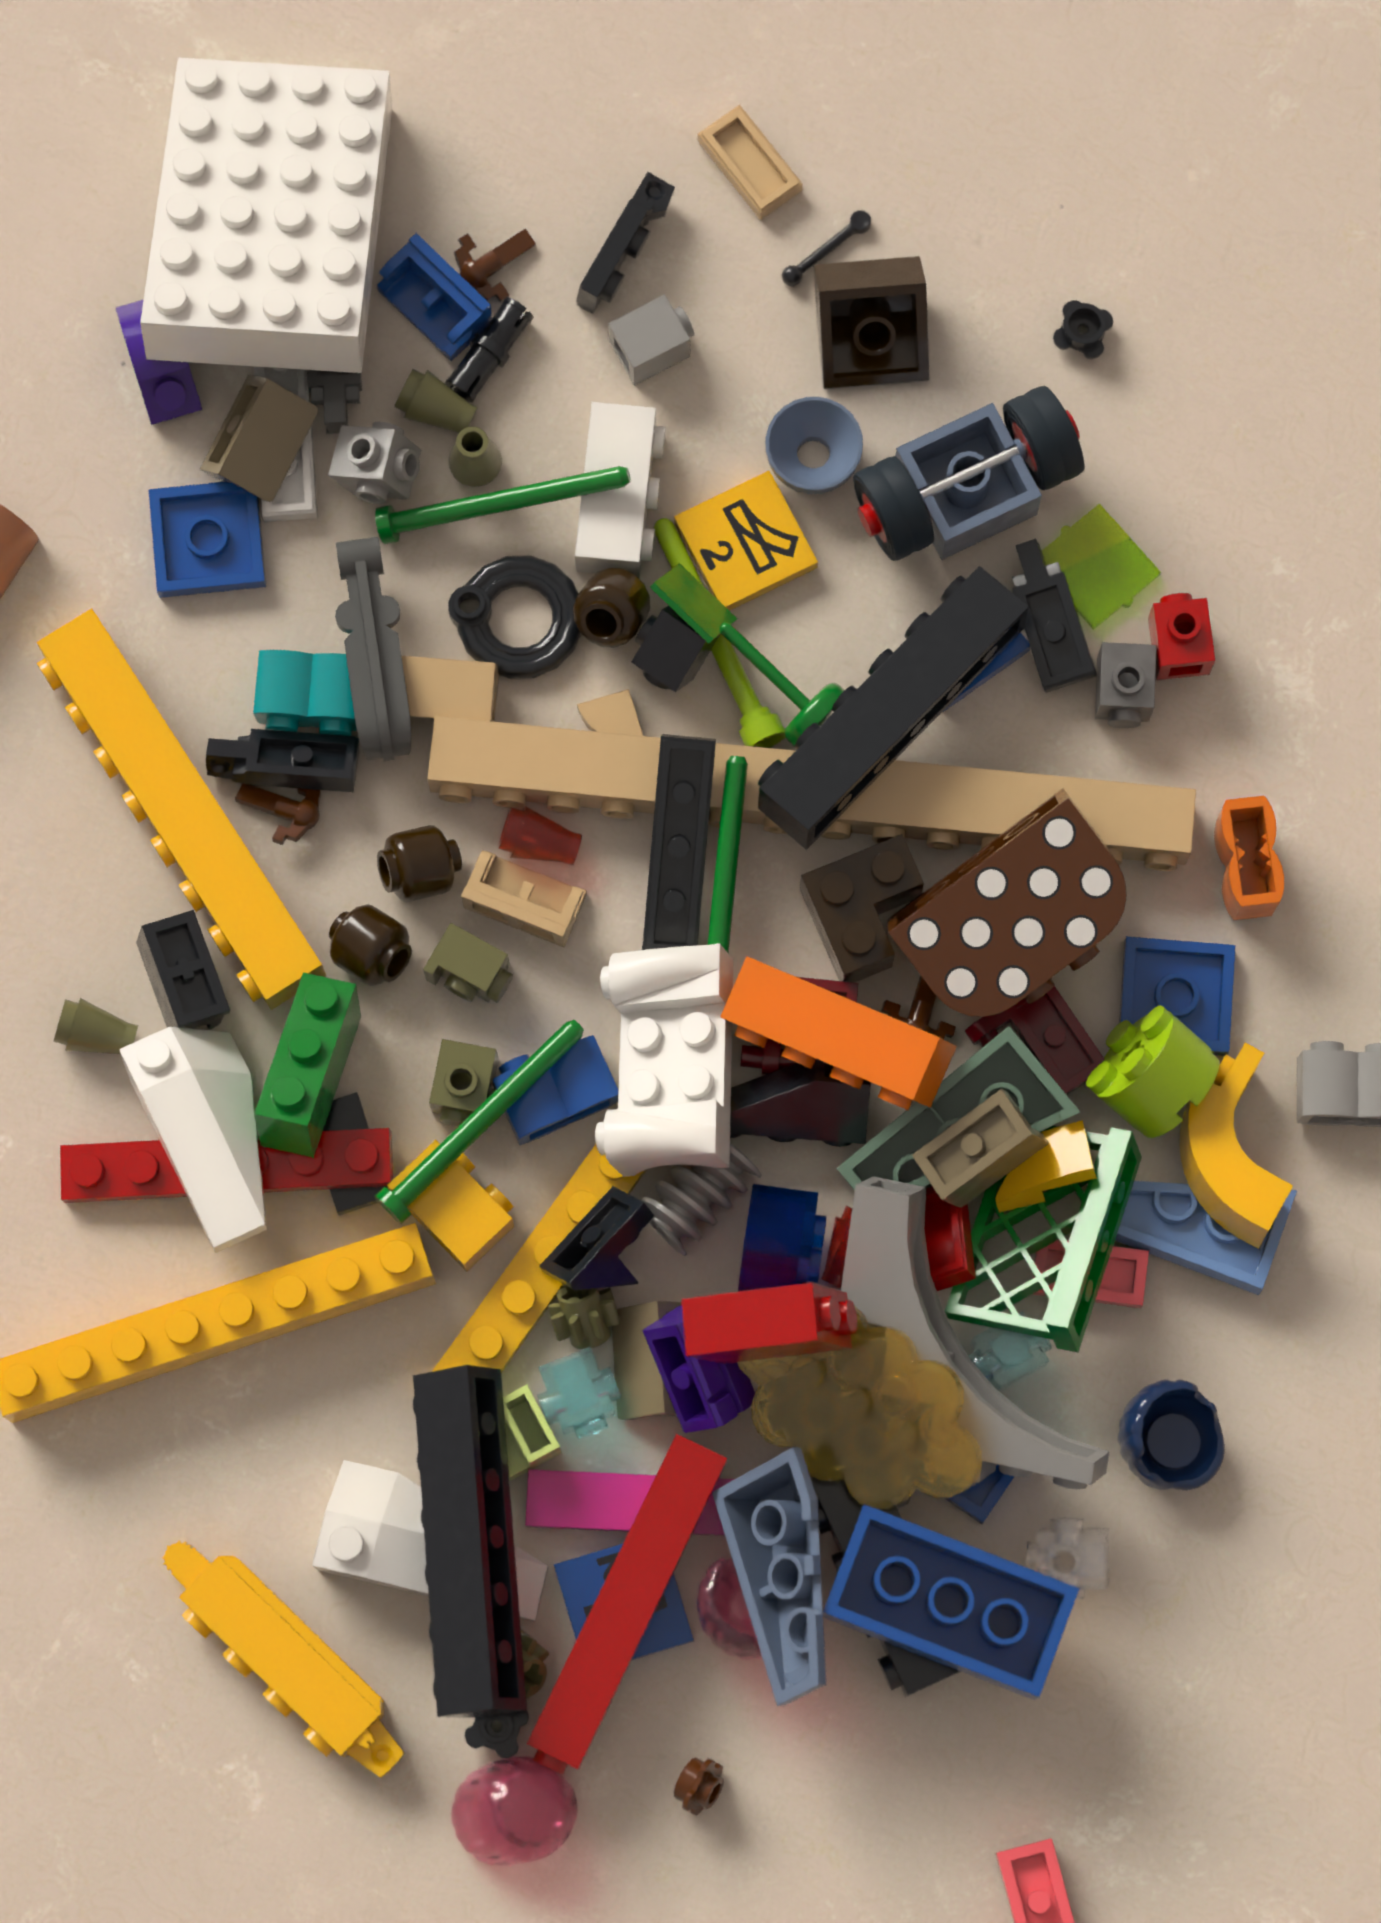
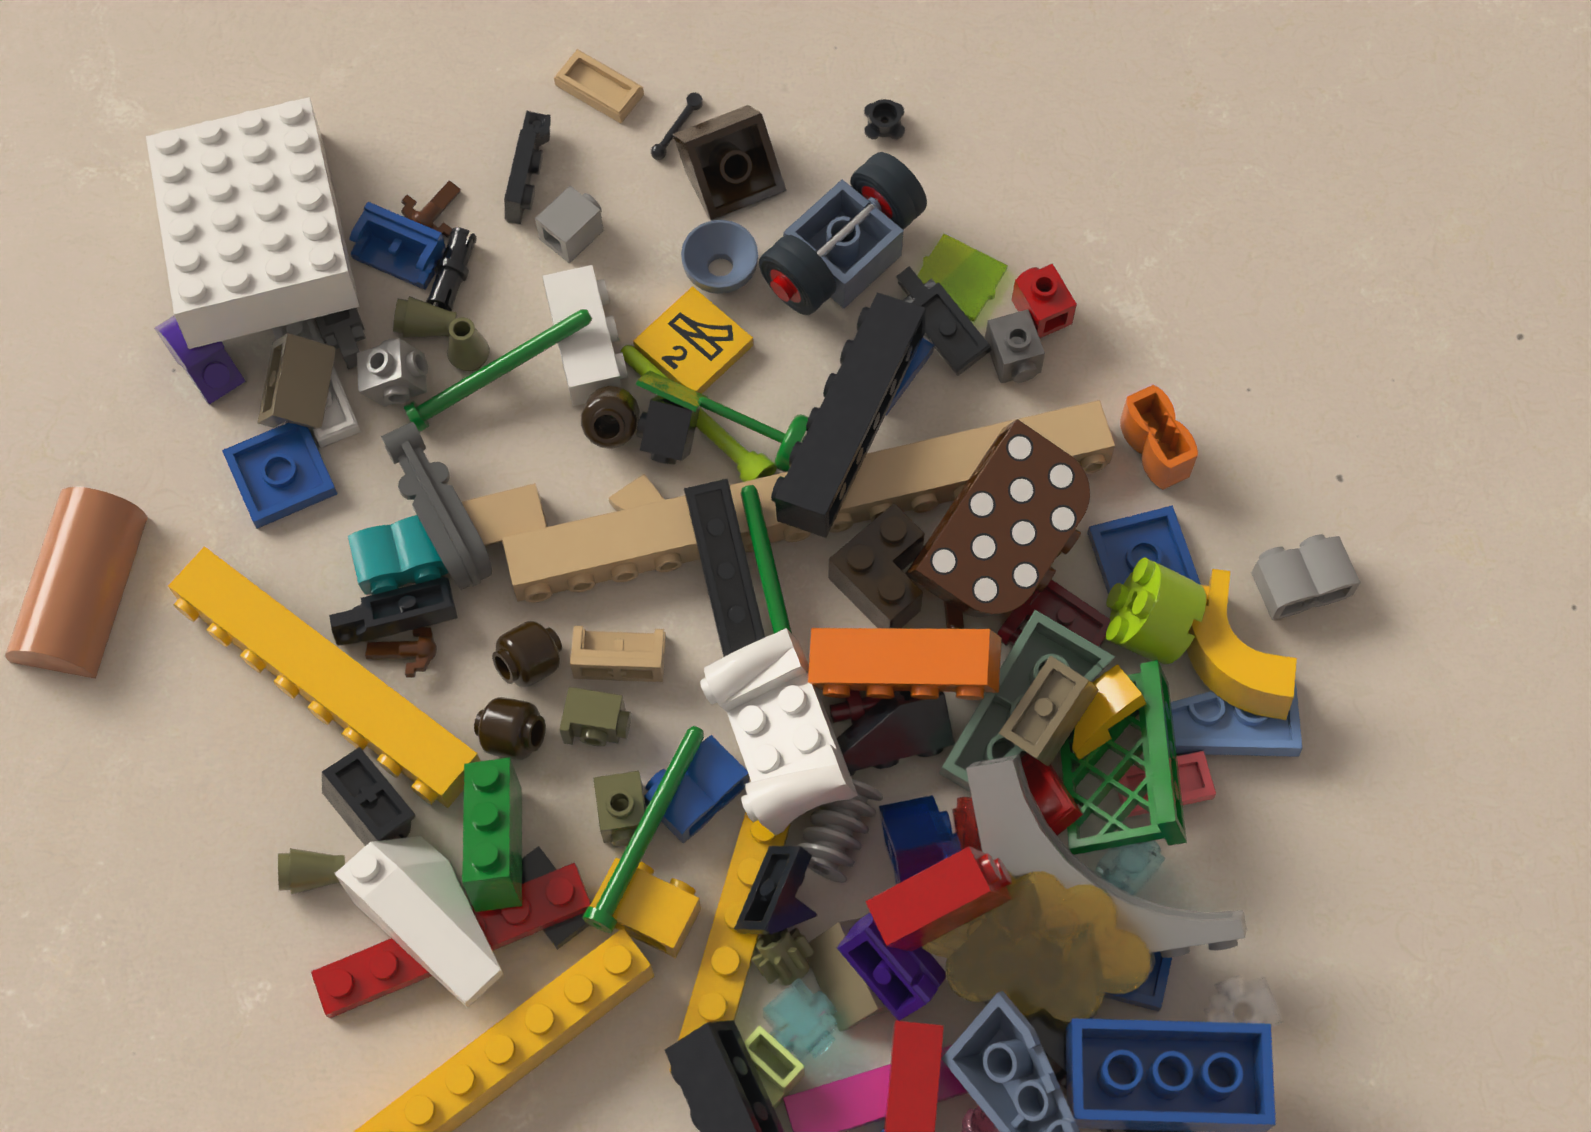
camera: 20 degrees left, 10 degrees down
(501, 576) = (528, 419): black piece -> none
(536, 837) = (613, 604): clear red cone -> none
(1171, 1436) = (1281, 885): dark blue piece -> none

